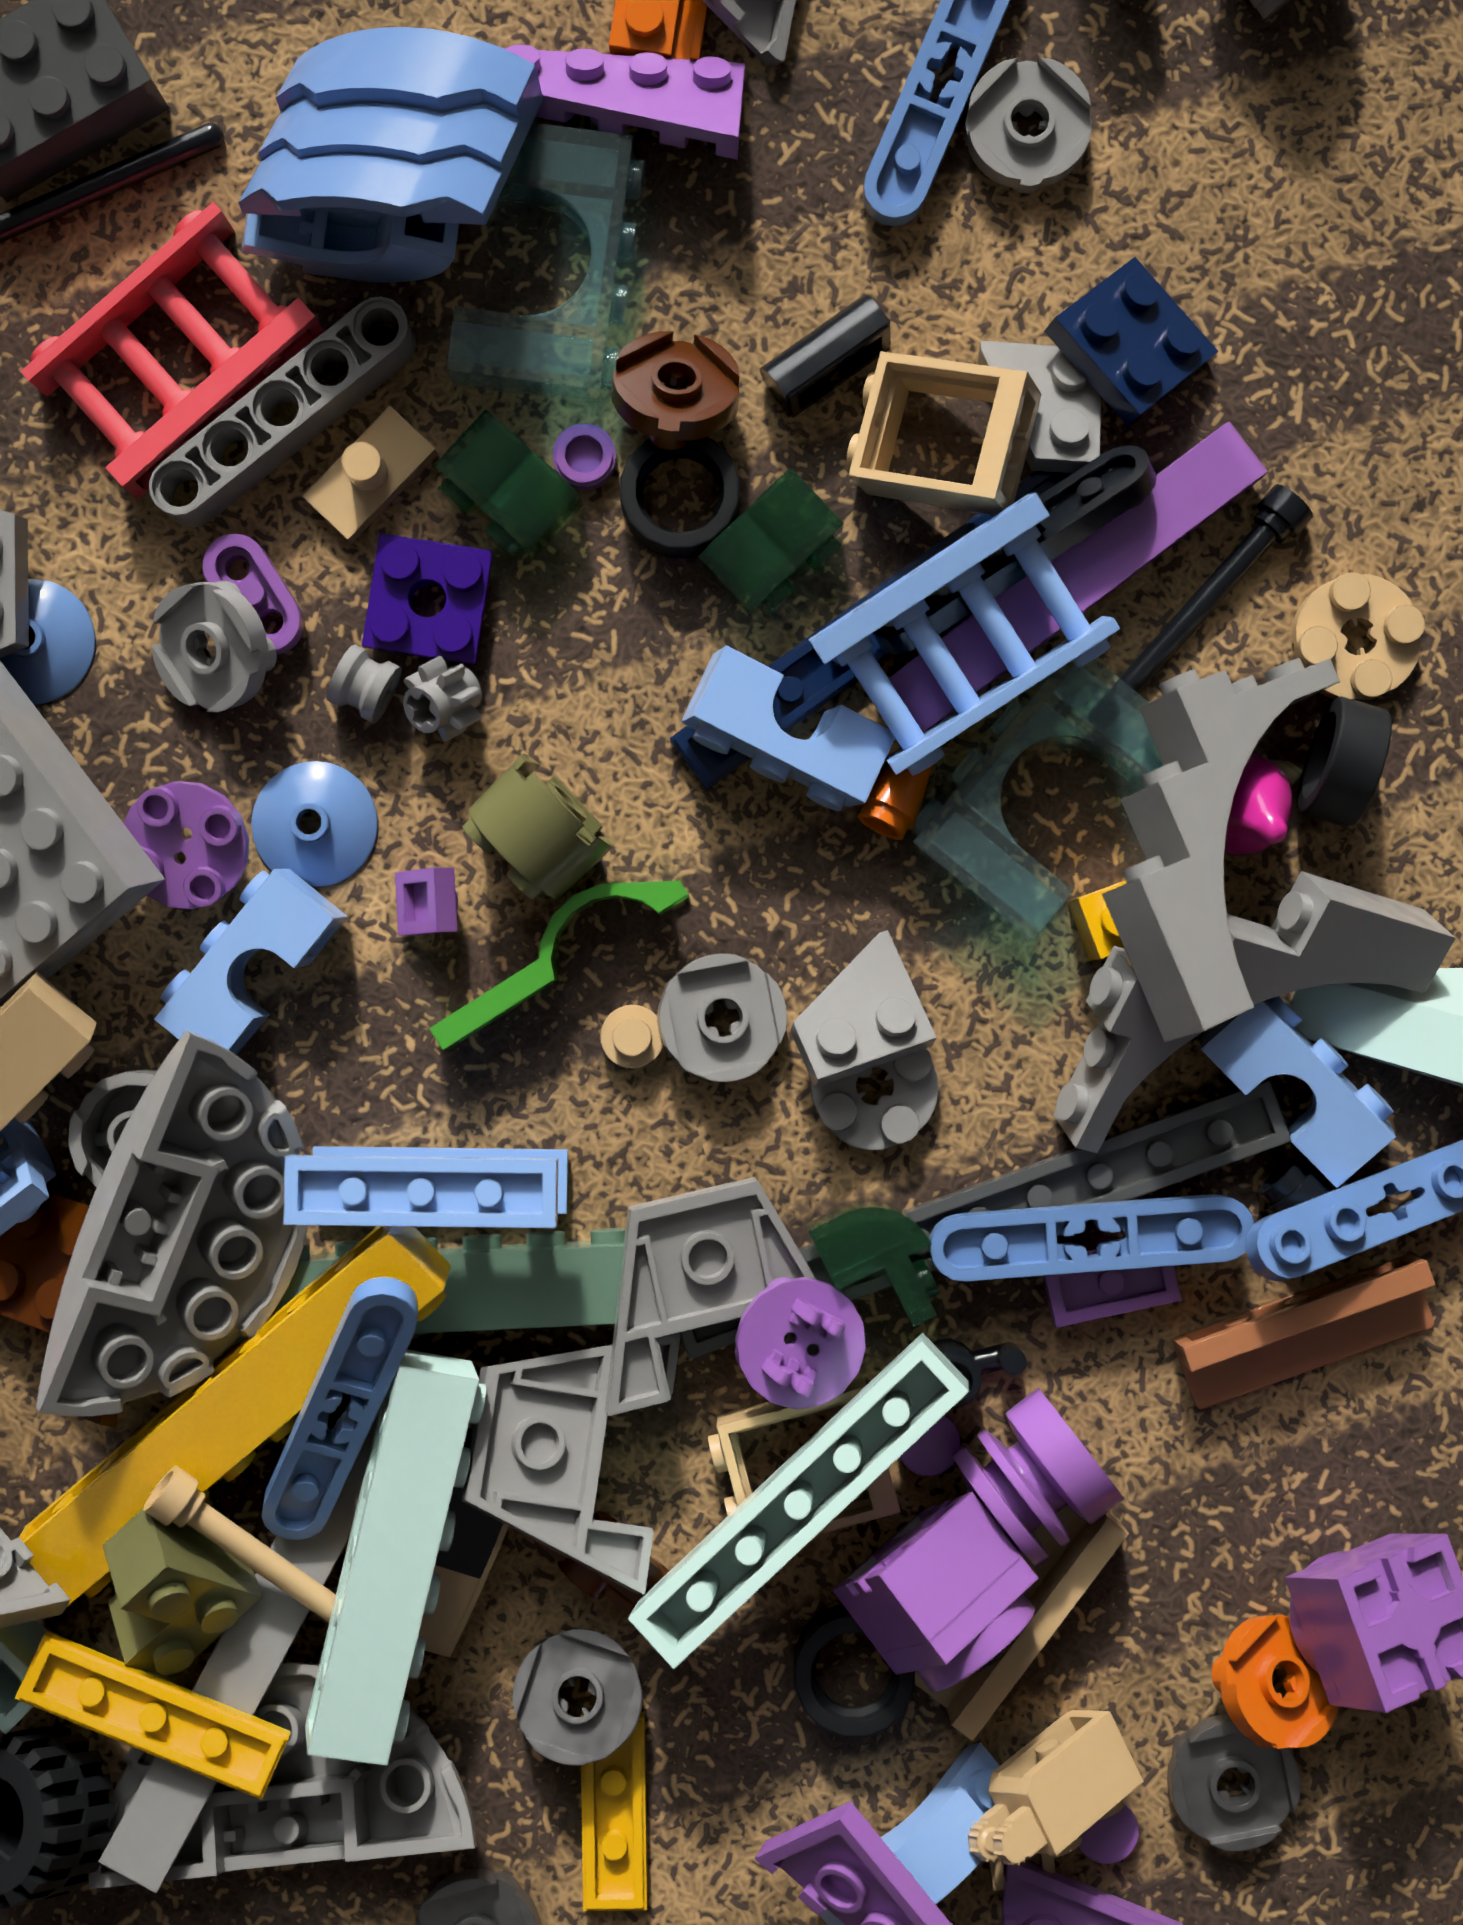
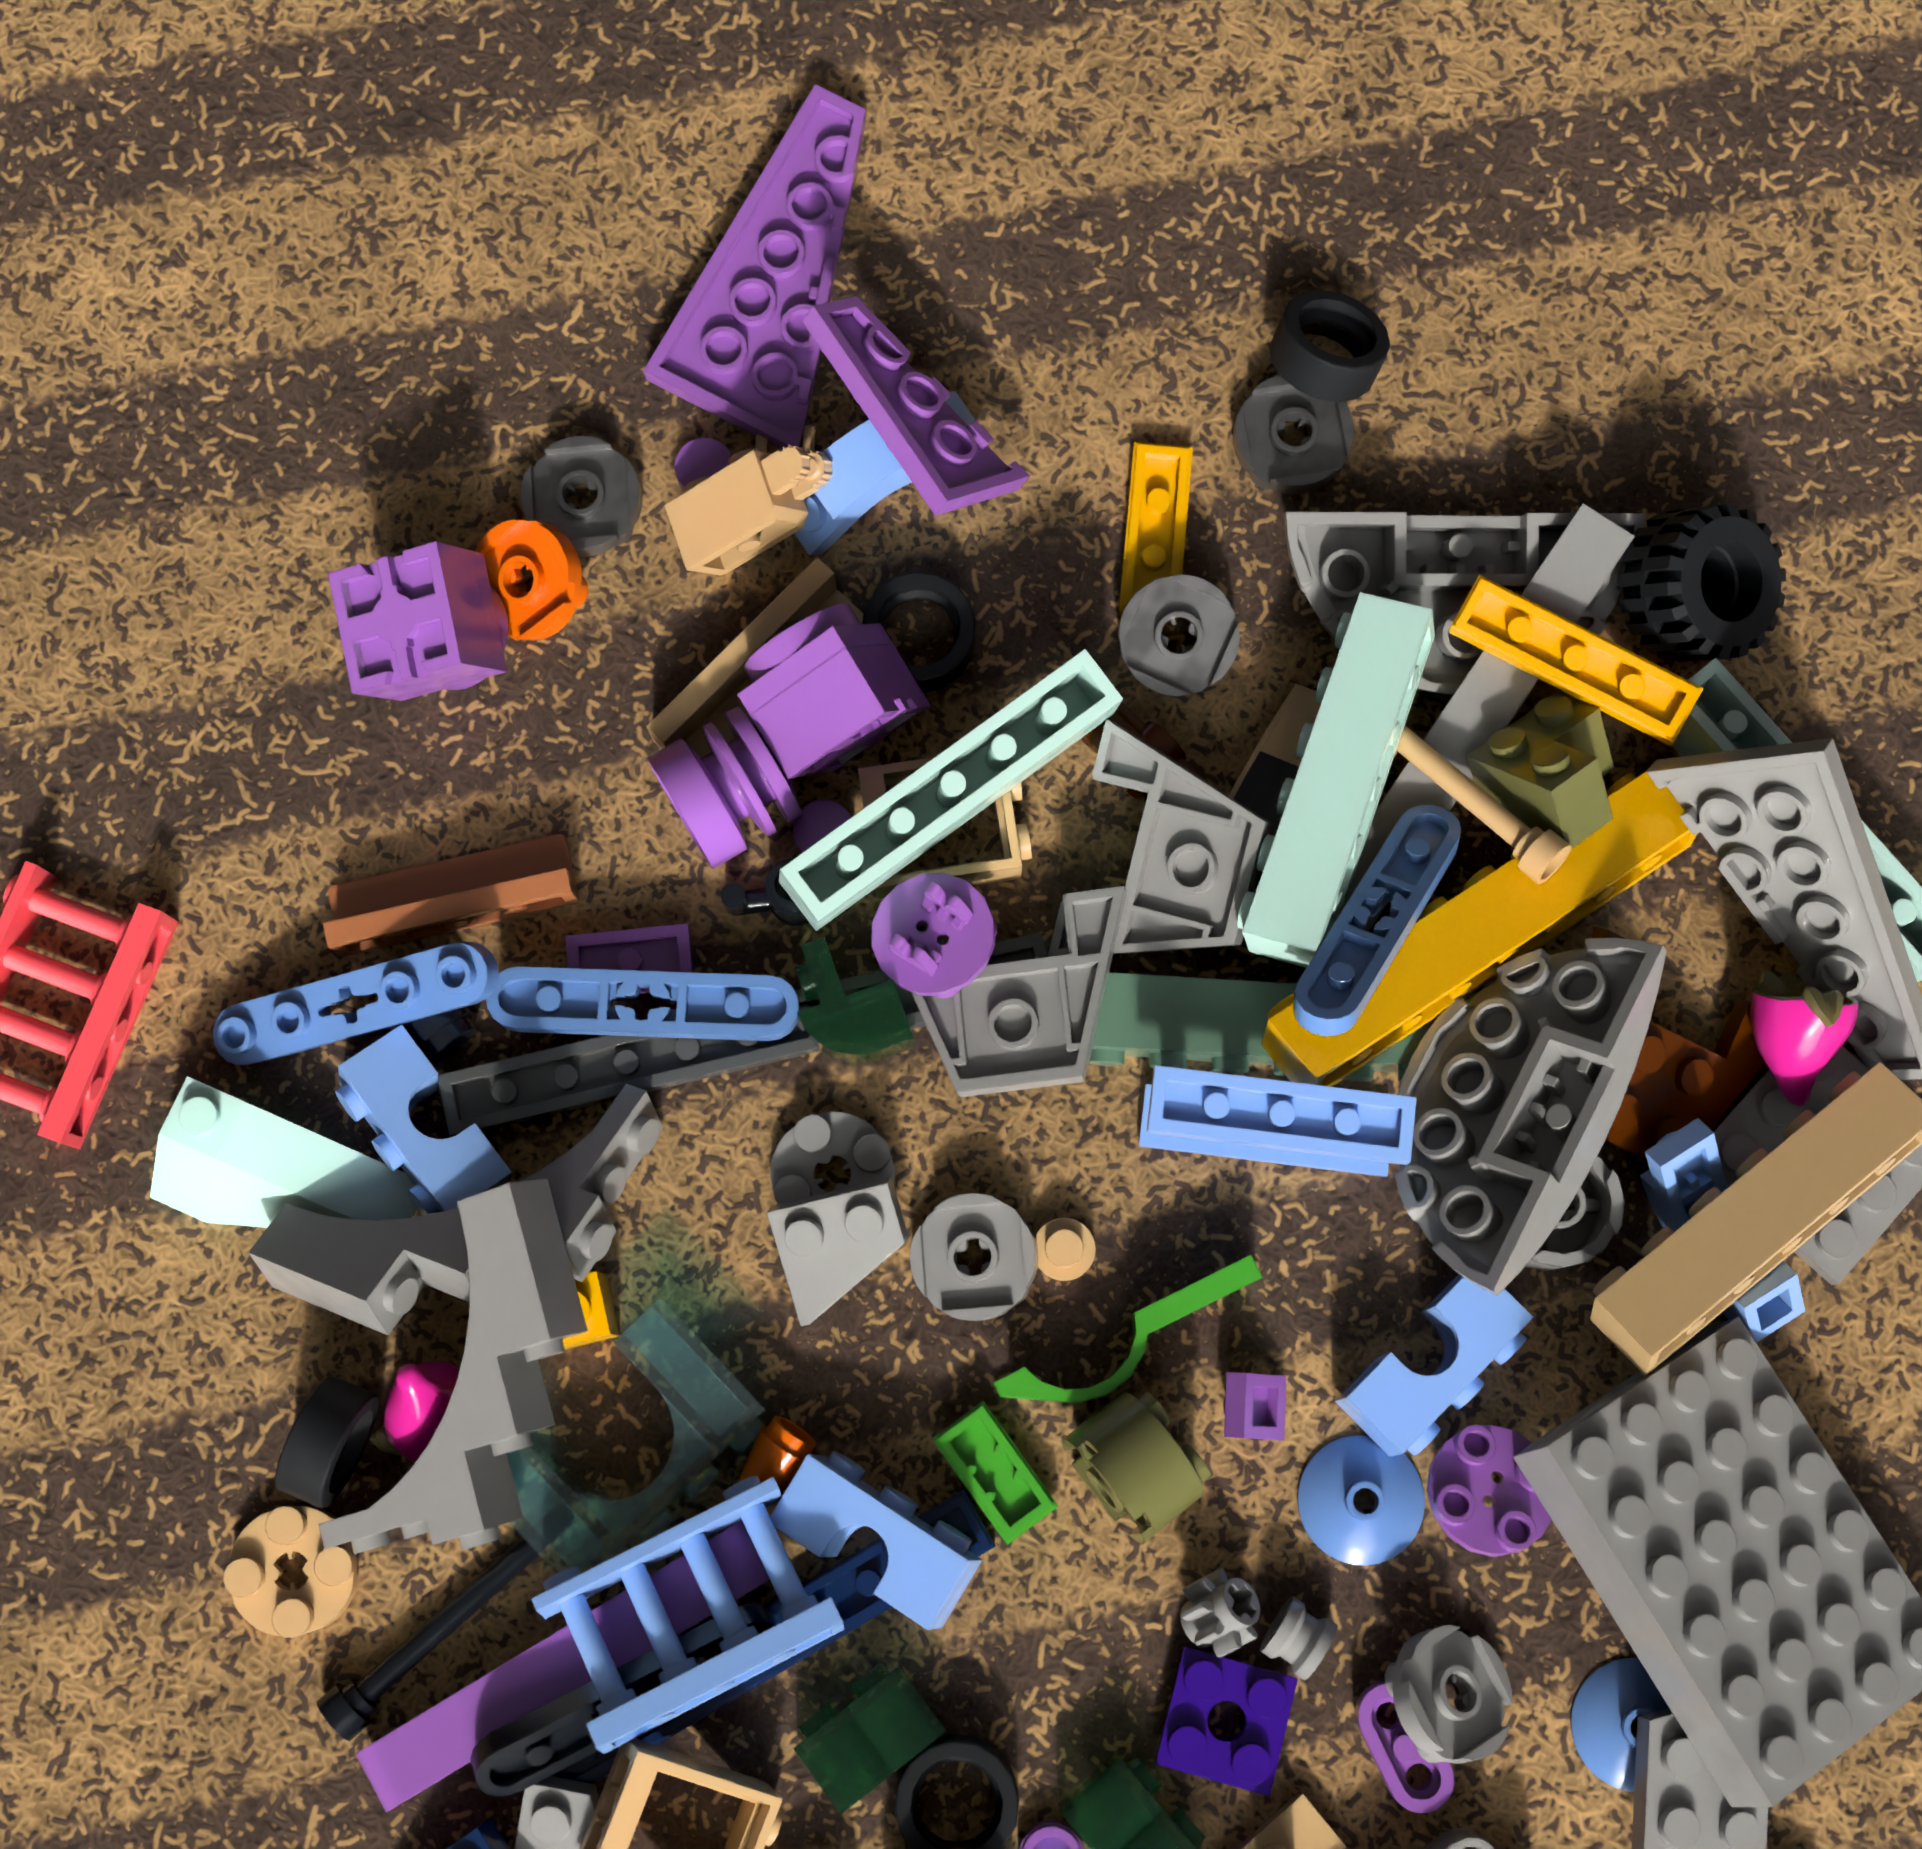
camera: 175 degrees left, 10 degrees down
(677, 808) = (995, 1472): none -> bright green plate

